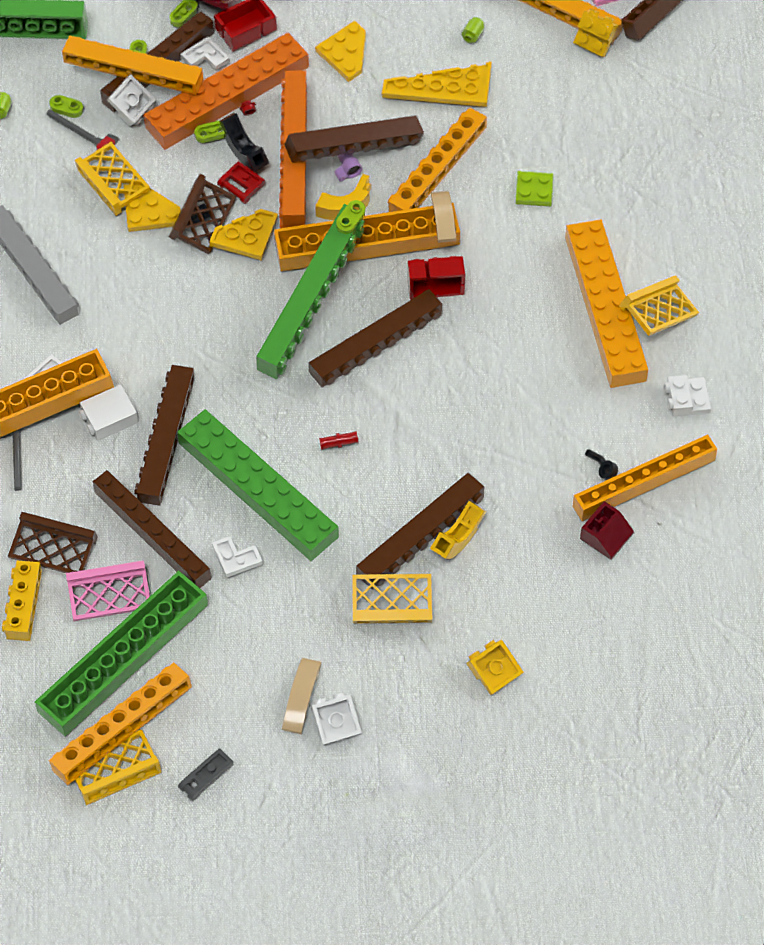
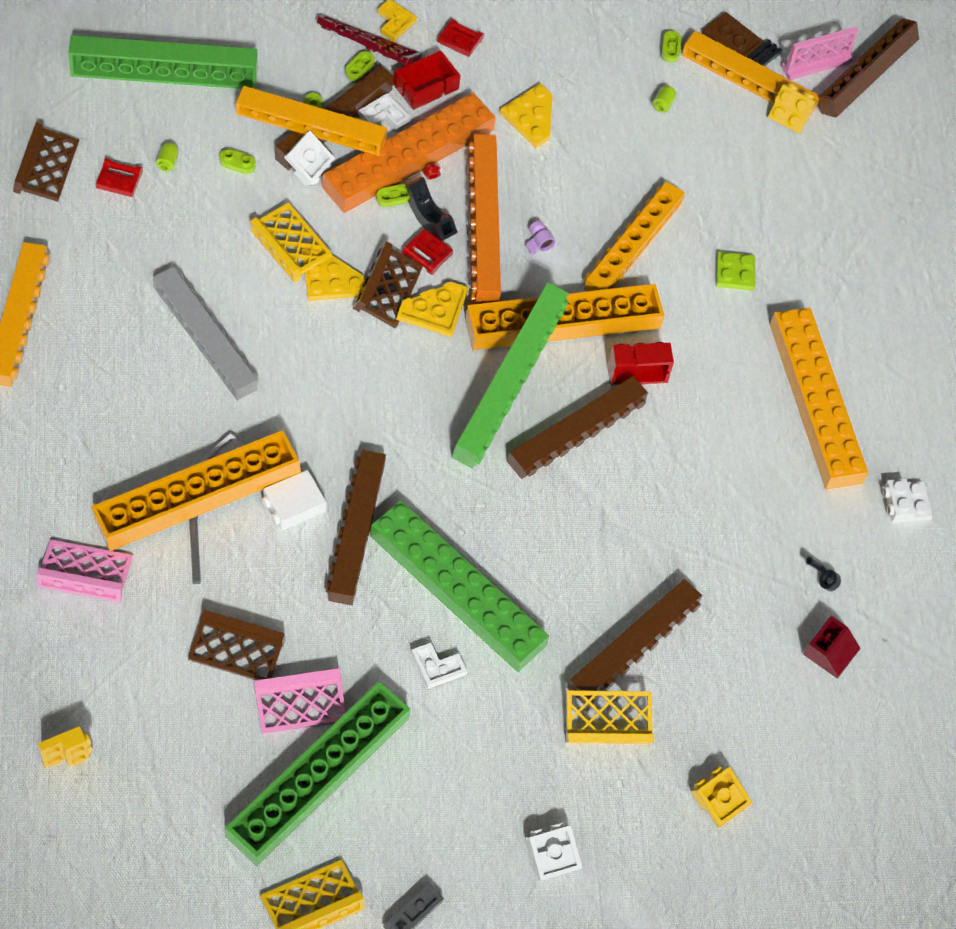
camera: 10 degrees left, 0 degrees up
(22, 601) = (206, 710): yellow brick -> none
(98, 142) = (274, 202): dark grey piece -> none
(115, 733) = (316, 863): light orange brick -> none
(151, 529) = (344, 632): reddish brown brick -> none
(300, 695) = (514, 824): tan slope -> none
(330, 205) = (532, 283): yellow arch -> none
(338, 440) = (543, 538): red pin -> none
(351, 216) = (556, 295): lime plate -> none
(353, 138) = (548, 210): reddish brown brick -> none
(443, 216) = (648, 298): tan slope -> none
(447, 86) = (637, 157): yellow wing -> none
(459, 535) = (678, 645): yellow arch -> none
(646, 476) = (870, 589): light orange brick -> none
(652, 295) = (868, 392): yellow fence -> none

